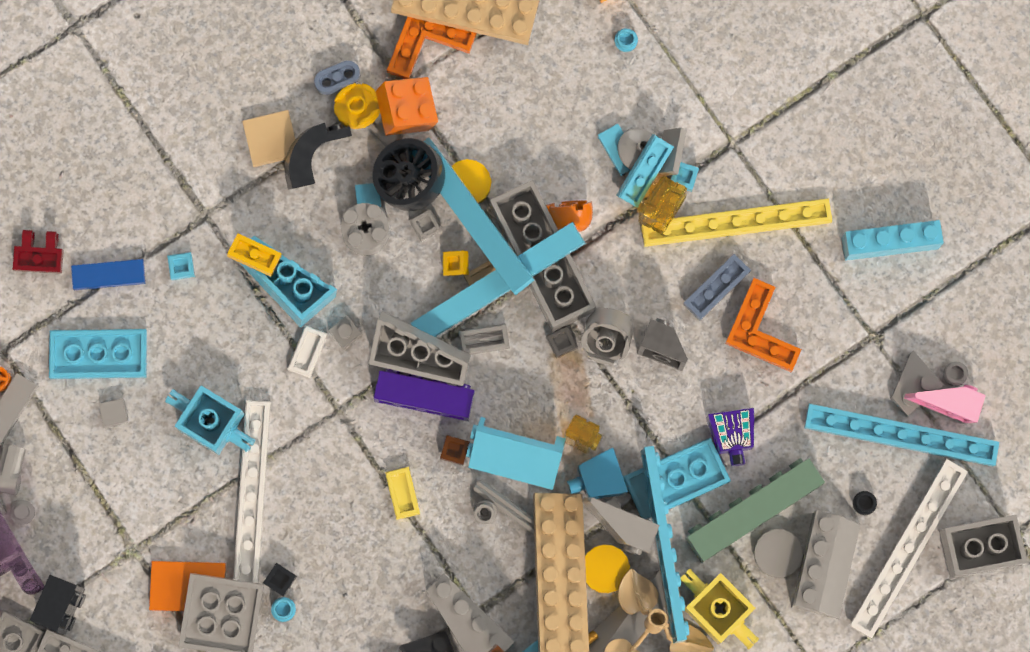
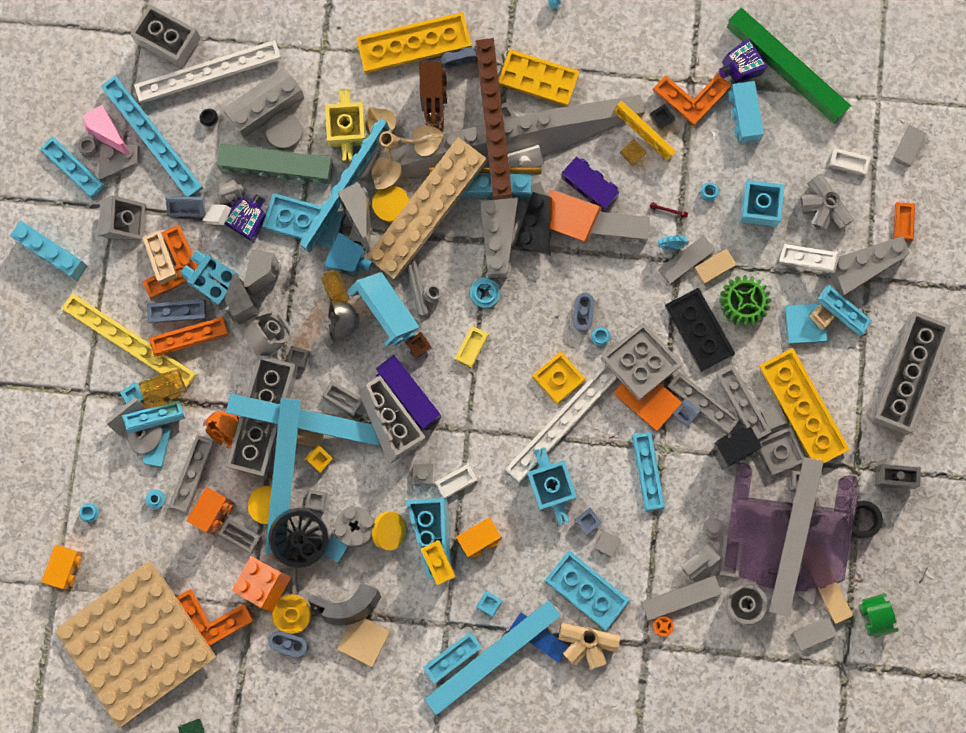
camera: 130 degrees left, 0 degrees up
(38, 259) = (576, 685): dark red plate -> none
(48, 303) = (592, 650): none -> tan piece
(127, 627) = (709, 407): none -> light grey tile
(129, 515) = (648, 471): none -> medium azure tile
(136, 221) = (492, 657): none -> medium azure tile
(136, 603) = (686, 412): none -> sand blue plate
(148, 418) = (588, 521): none -> sand blue plate
(174, 189) = (452, 657): none -> medium azure plate
(239, 316) = (479, 538): none -> light orange brick
(280, 579) = (588, 355): black plate -> none
(291, 534) = (558, 378): none -> yellow tile
(320, 619) = (582, 312): none -> sand blue plate
(330, 251) = (389, 530): none -> yellow tile
(425, 549) = (483, 284): none -> medium azure gear
(472, 143) = (253, 543): none -> light grey tile
(512, 130) = (210, 511): none -> orange brick
(548, 411) = (342, 319): none -> flat silver cylinder
(550, 383) = (326, 336): none -> light grey tile
(563, 152) = (192, 474): none -> light grey tile
(576, 109) = (161, 499): none -> medium azure plate
(669, 391) = (261, 271): none -> light grey slope
(682, 273) = (188, 336): none -> orange tile
(716, 342) = (203, 276): none -> medium azure hips
(762, 409) = (216, 214): none -> white tile
(770, 443) = (230, 193): none -> light grey head
(779, 322) = (160, 257): none -> tan plate
(803, 394) = (185, 206): none -> sand blue plate
(852, 329) = (121, 219): none -> light grey slope
(950, 340) = (72, 167): none -> medium azure tile

